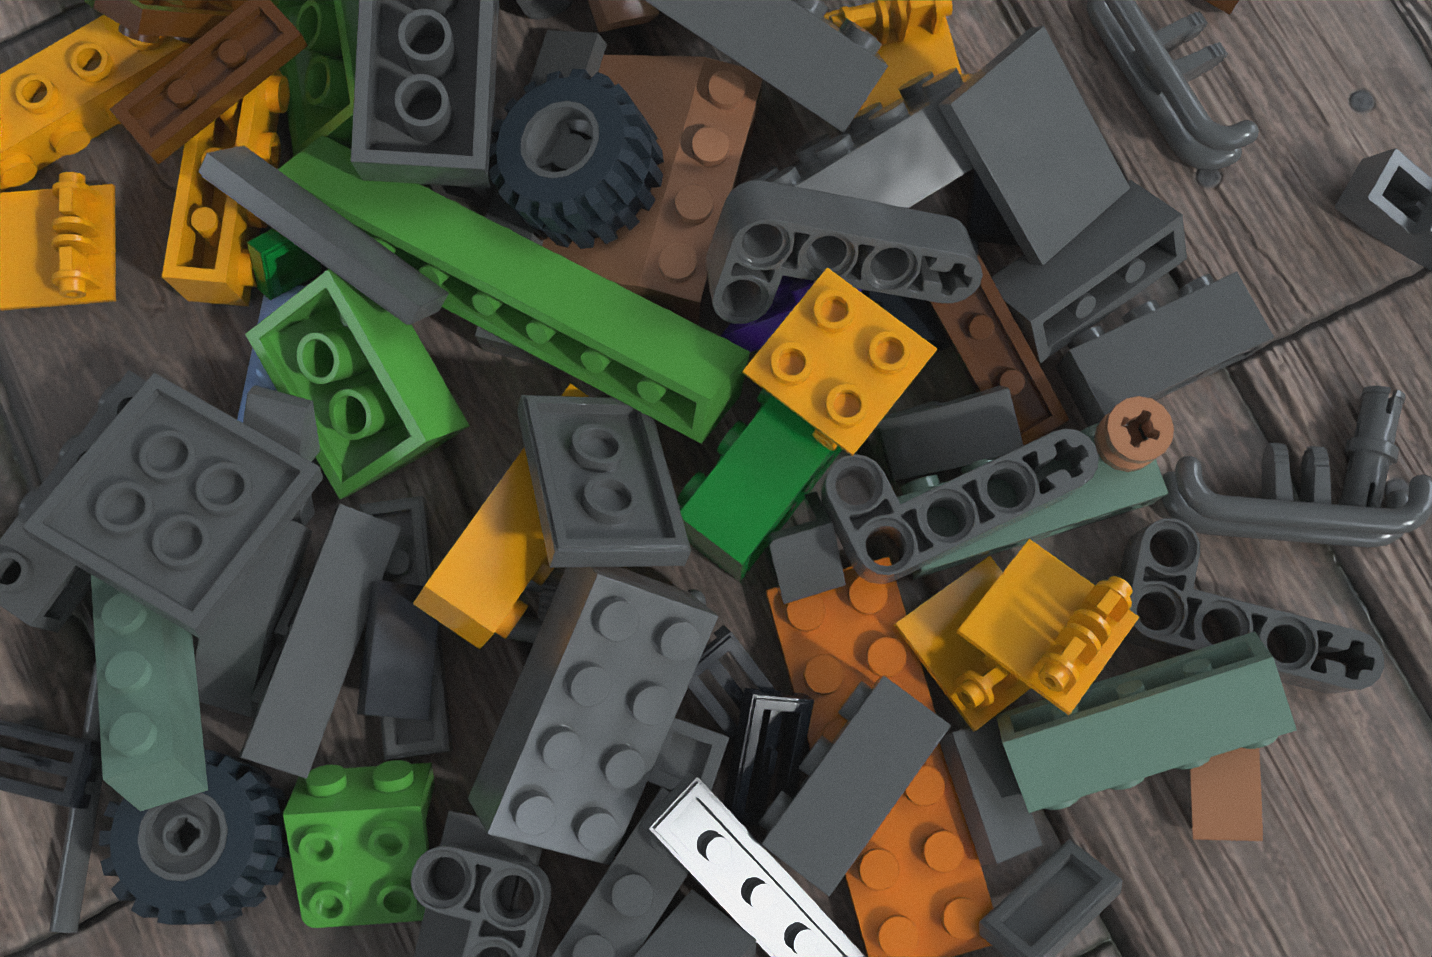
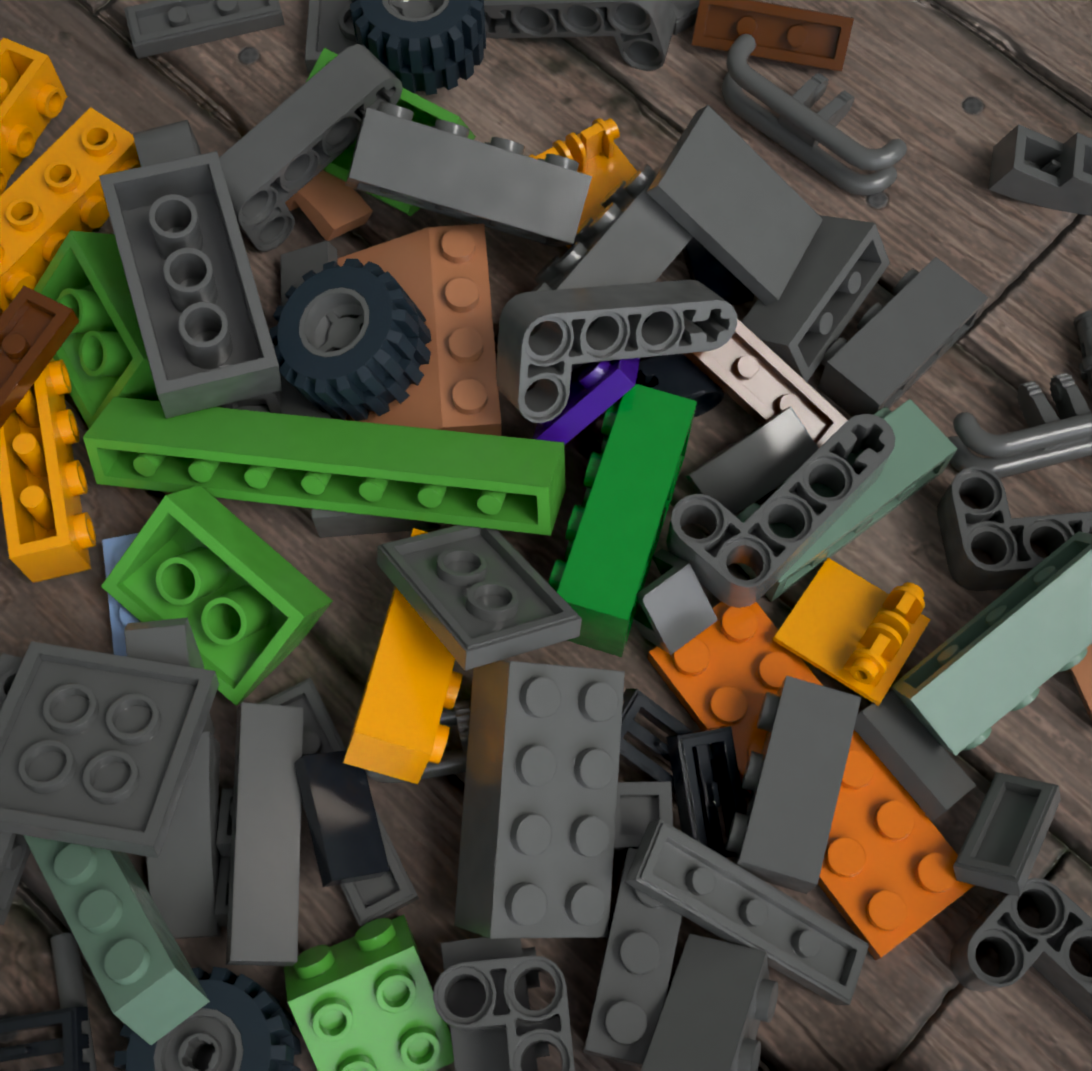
camera: 20 degrees left, 10 degrees down
(280, 264) = (114, 510): green tile -> none
(323, 233) = (148, 469): dark grey tile -> none
(839, 362) = (648, 418): light orange hinge -> none
(1051, 624) = (908, 586): light orange hinge -> none
(1123, 445) = (896, 408): nougat wheel -> none

